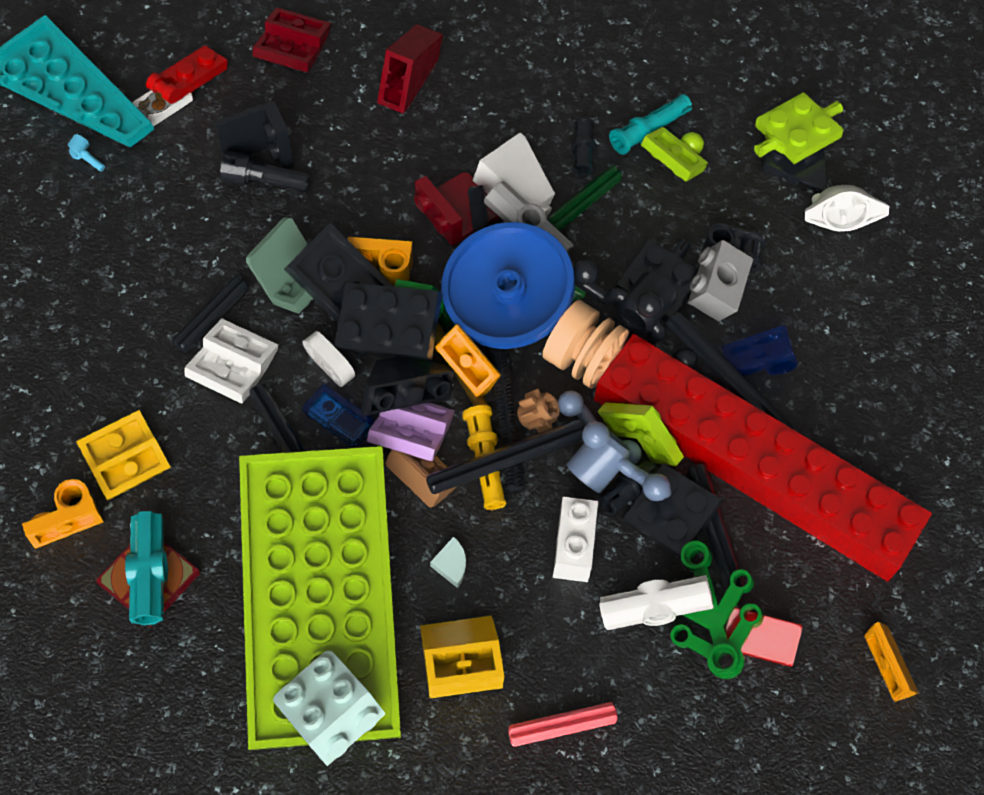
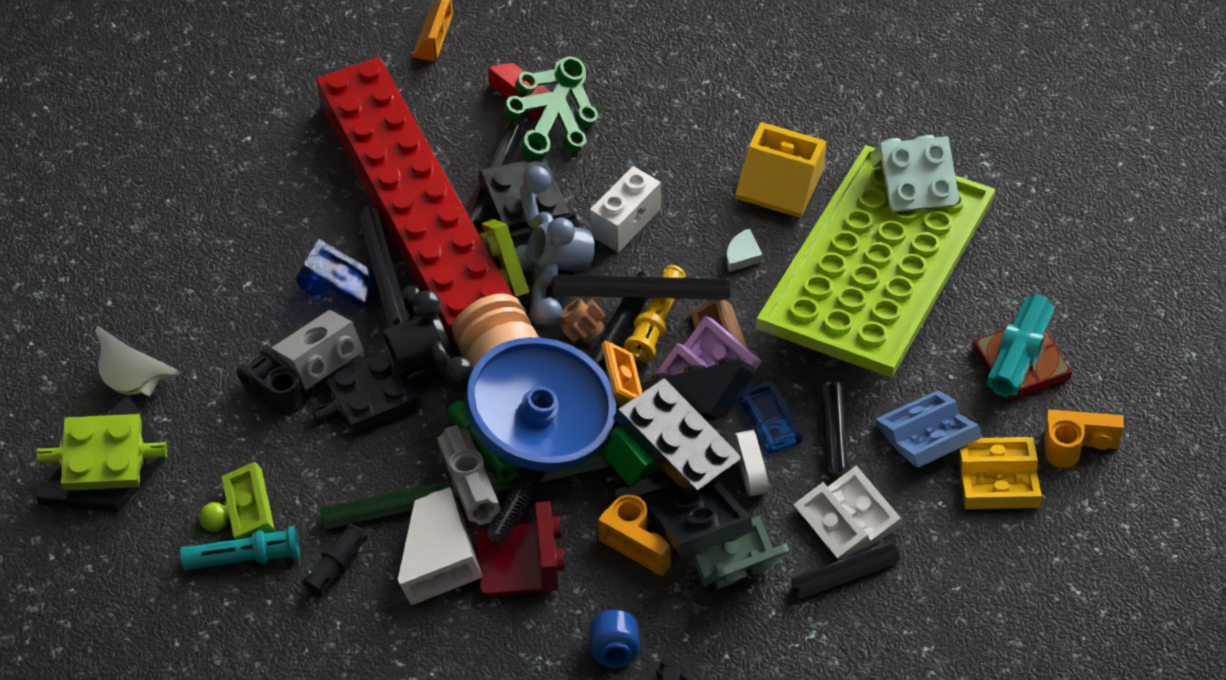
camera: 145 degrees left, 10 degrees down
(199, 462) = (928, 428): none -> medium blue slope
(350, 178) = (614, 638): none -> blue head
(562, 724) = (727, 104): coral axle -> none
(656, 602) = (594, 130): white piece -> none

